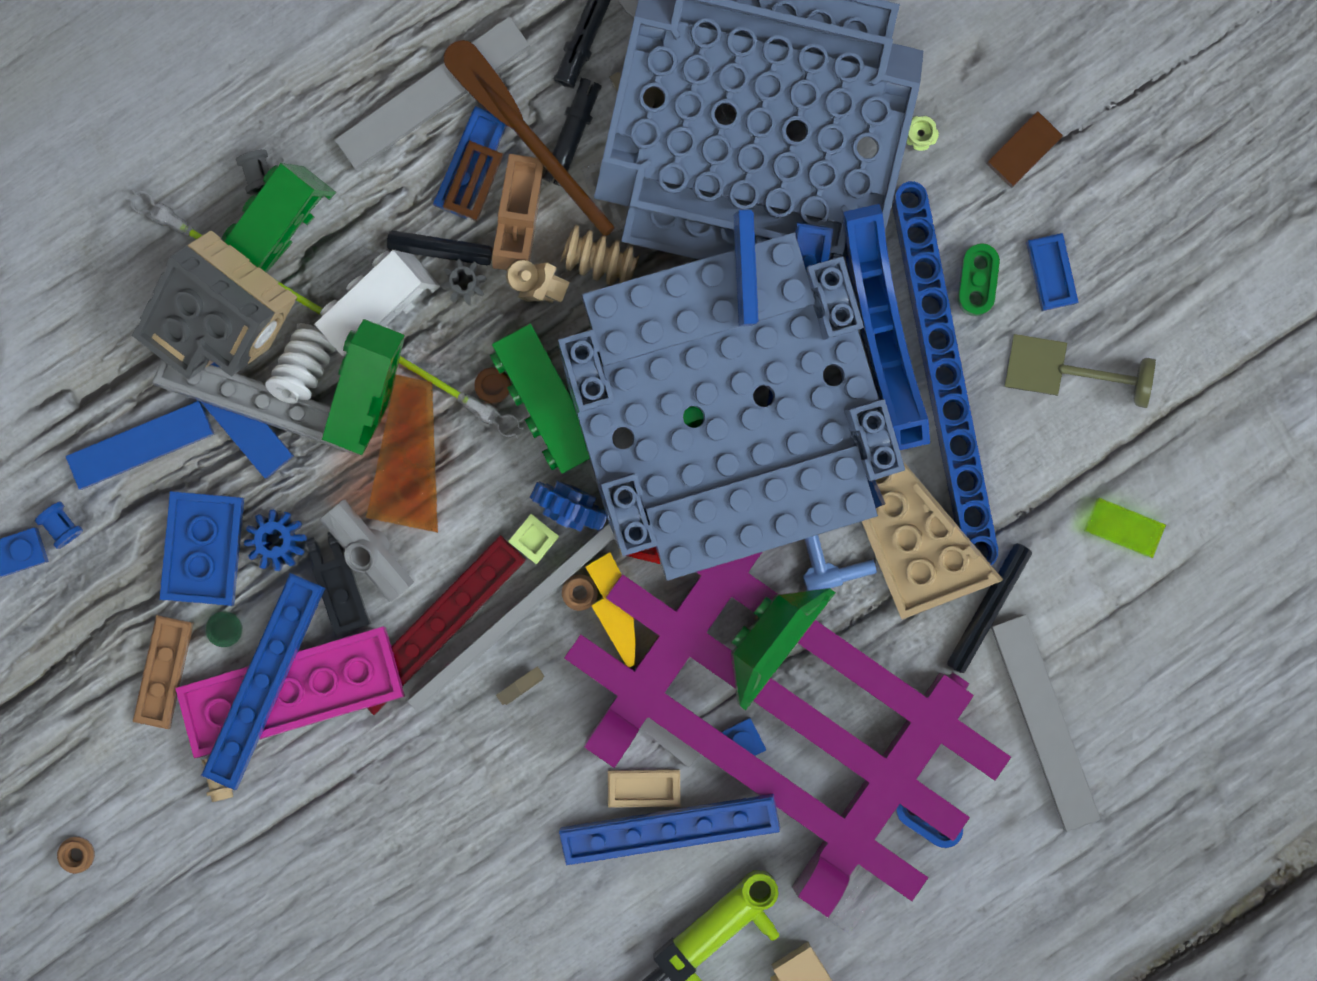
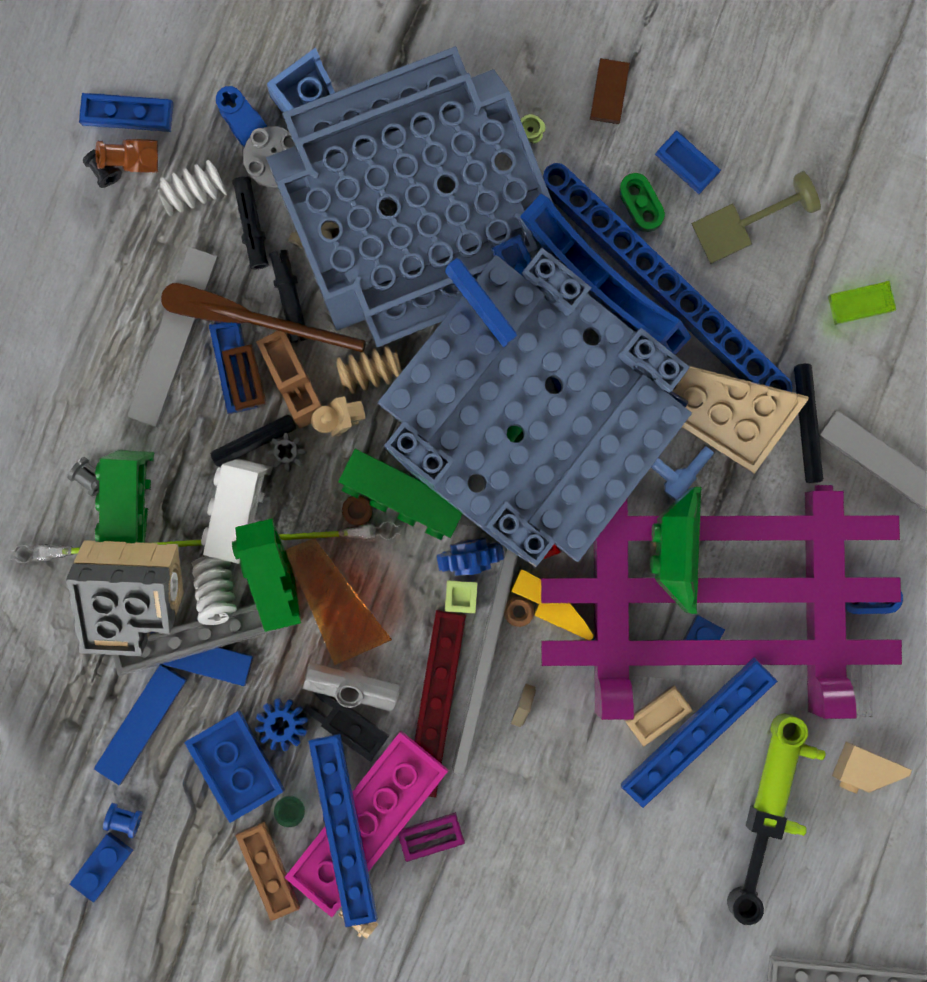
camera: 25 degrees left, 0 degrees up
(371, 759) = (405, 844): none -> magenta tile

